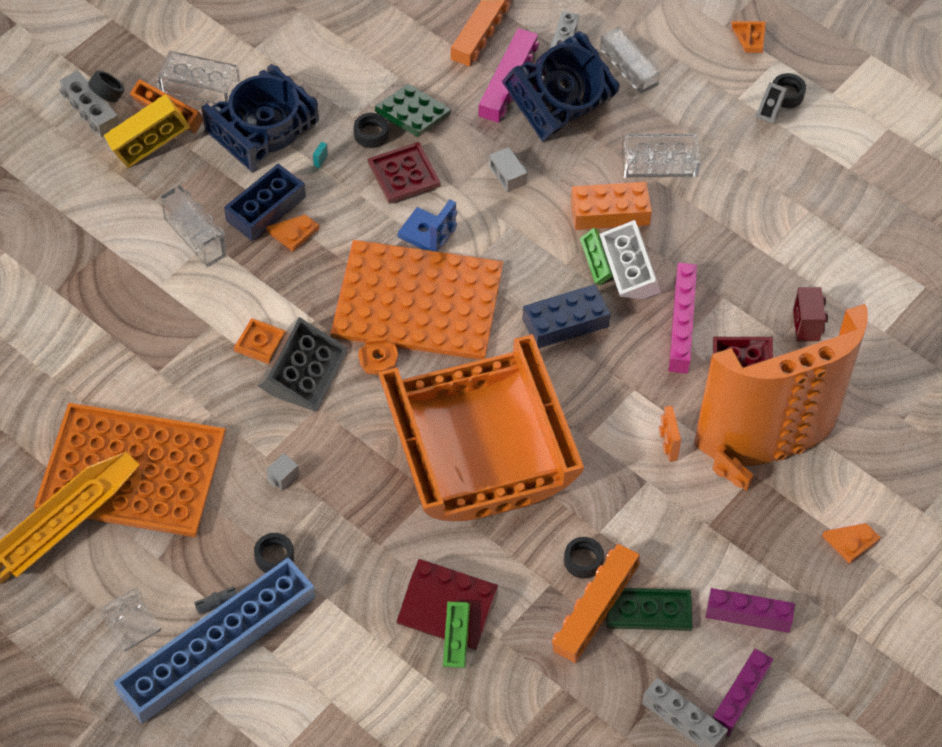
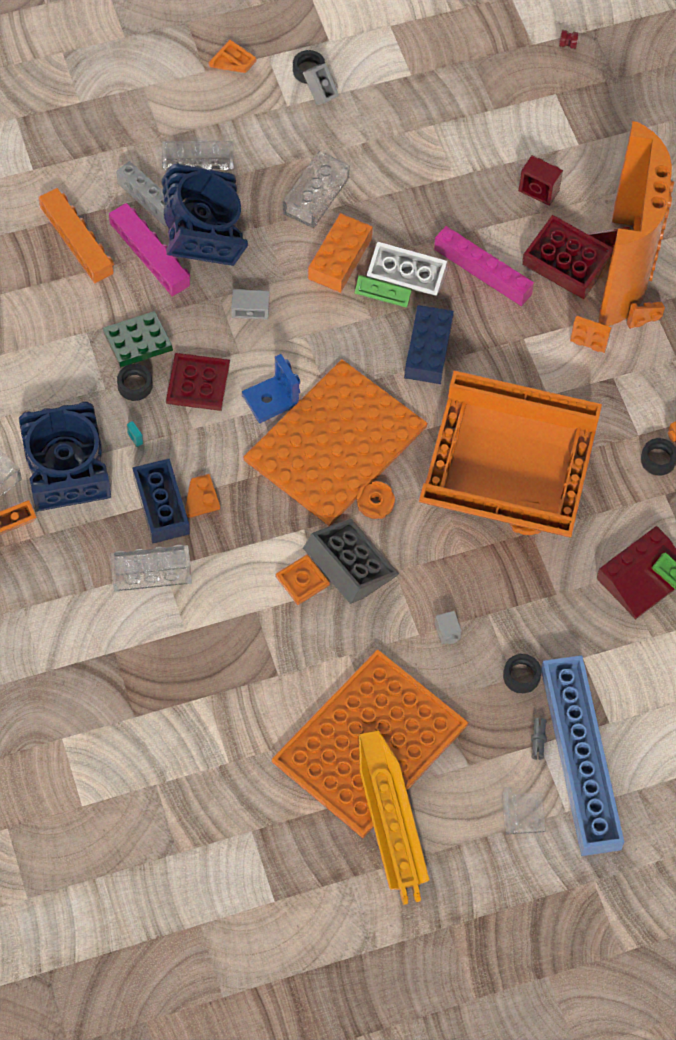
camera: 60 degrees left, 5 degrees up
(146, 131) = (24, 551): yellow brick -> none

